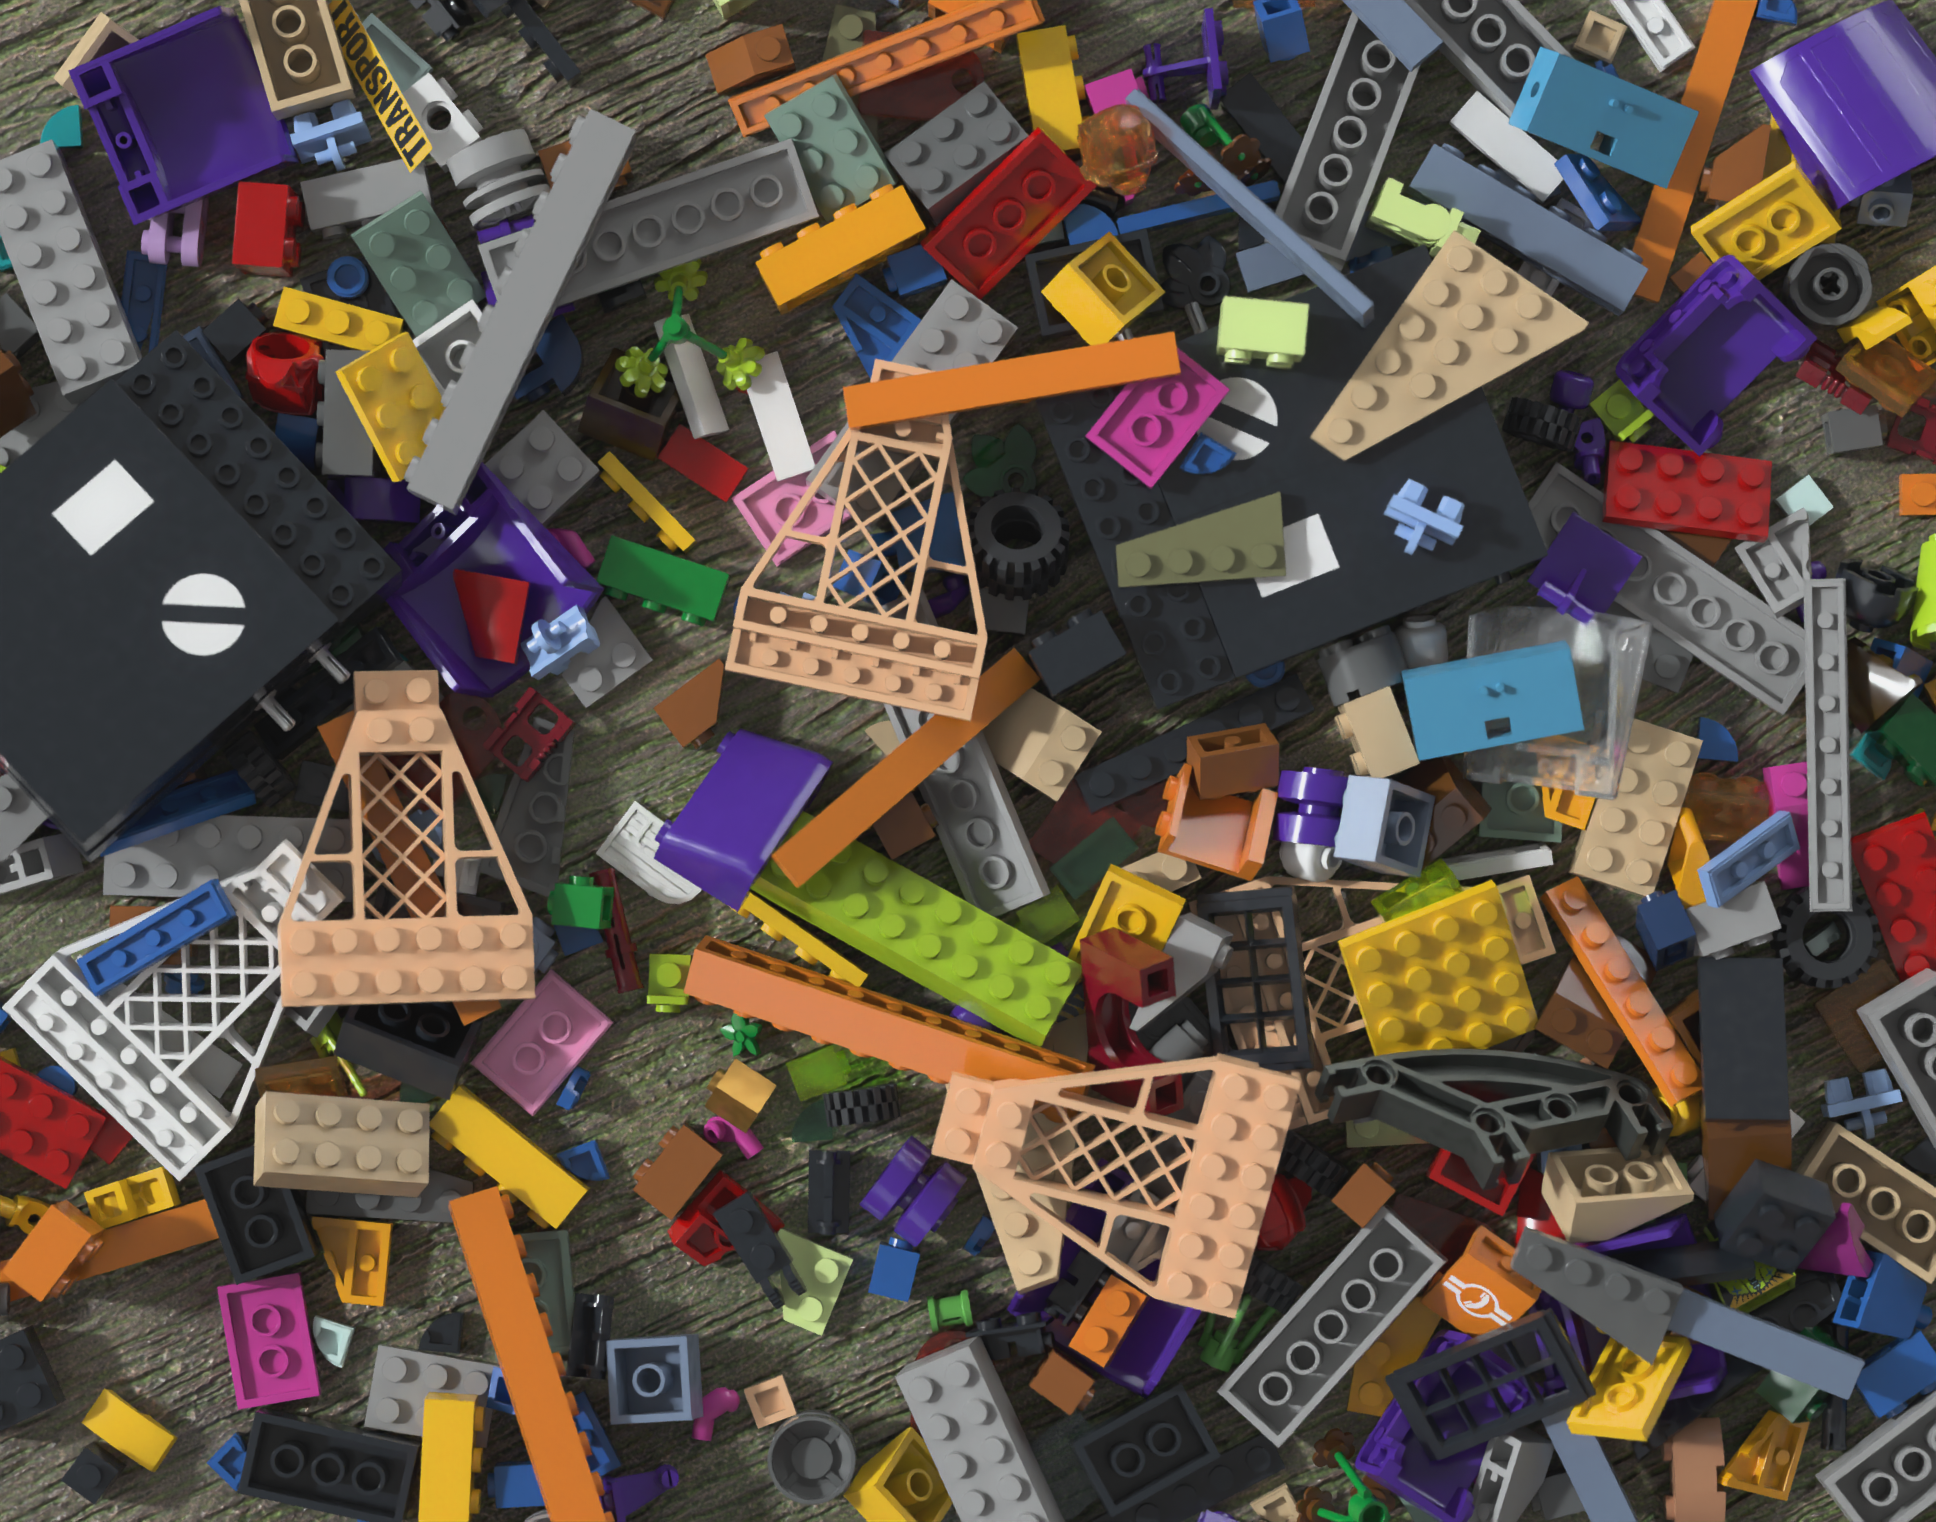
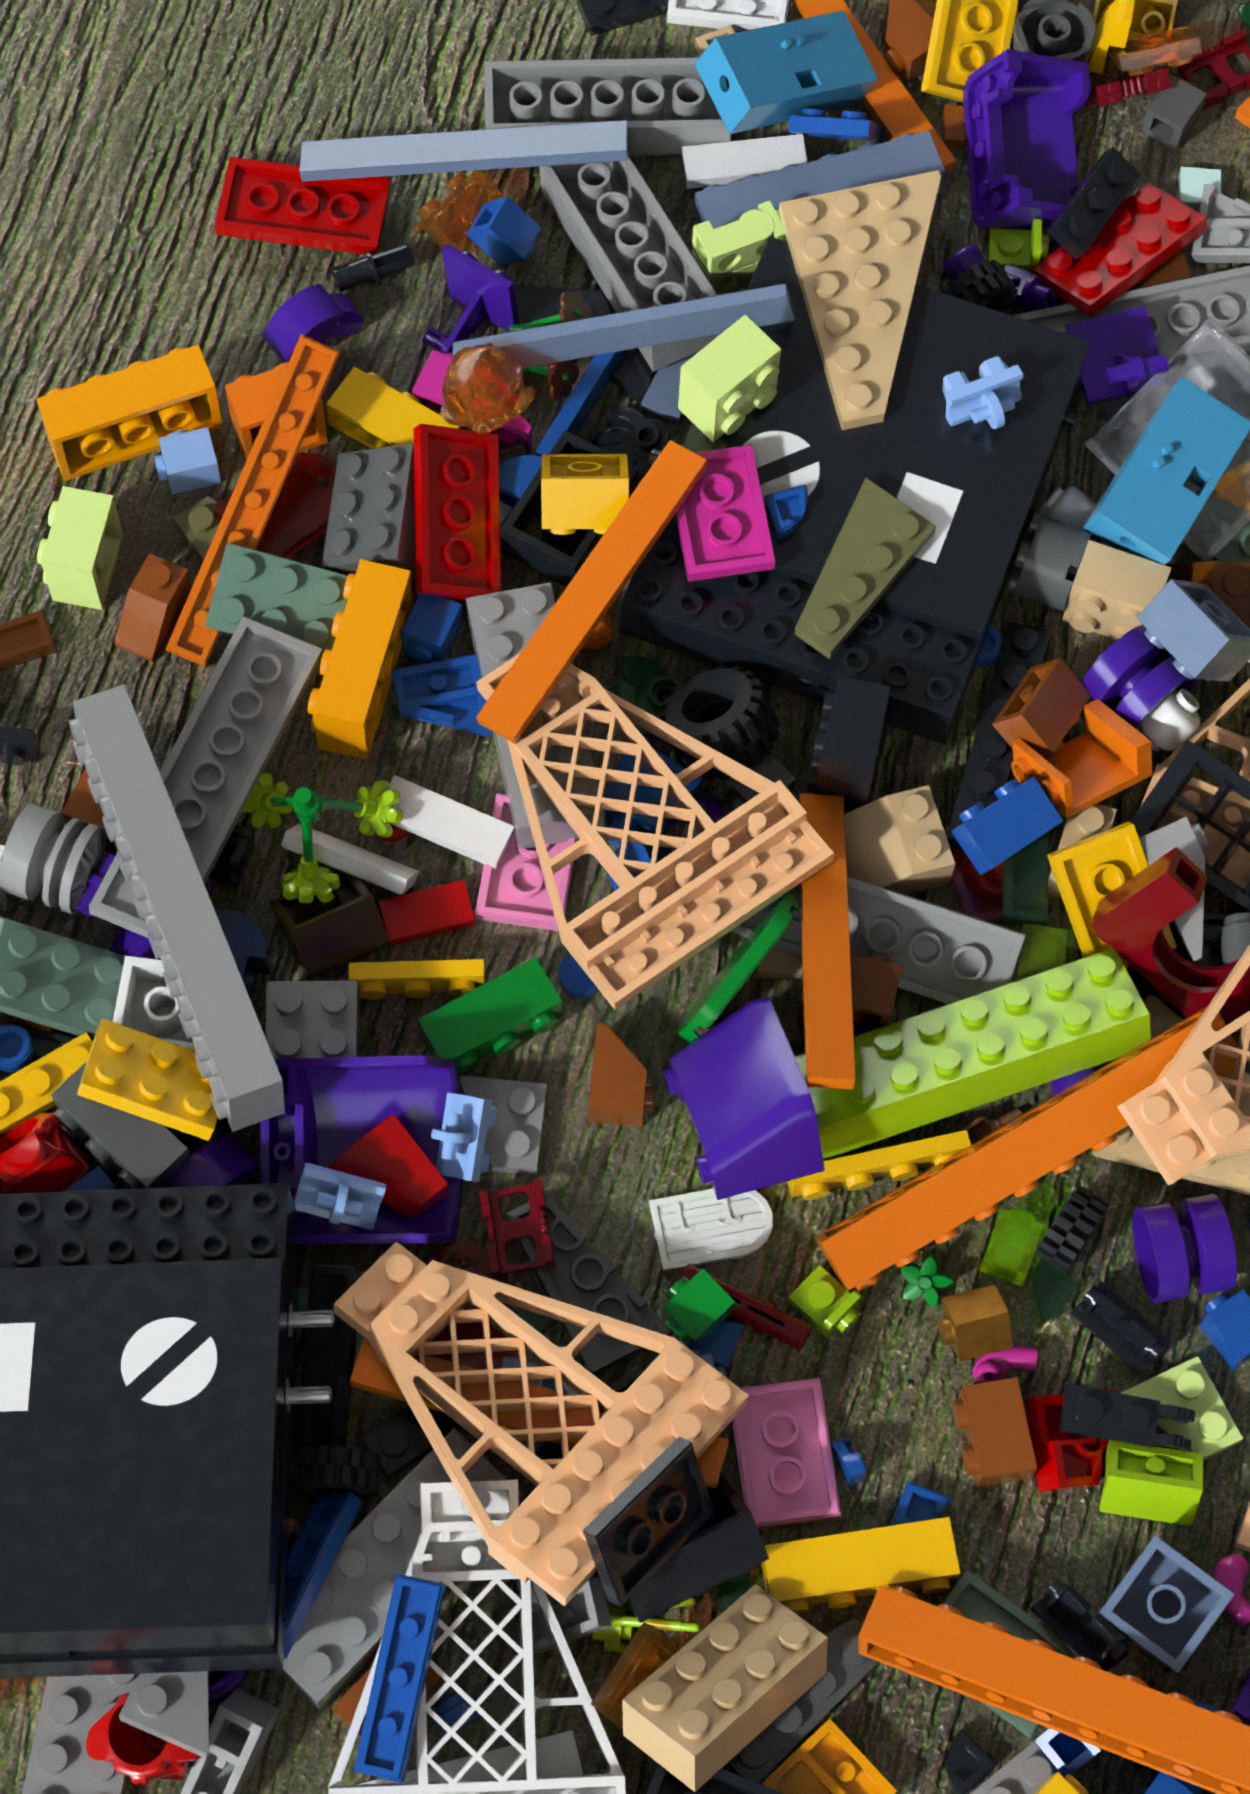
camera: 50 degrees left, 20 degrees down
(385, 1011) = (649, 1521): none -> black tile
(438, 601) = (339, 1196): none -> light blue hips
(736, 1300) = (1152, 1483): none -> lime panel
(839, 721) = (739, 967): none -> green tile
(890, 985) = (983, 1126): none -> nougat hand
(1112, 814) = (1006, 825): none -> blue brick
(1701, 443) = (1093, 203): none -> black plate

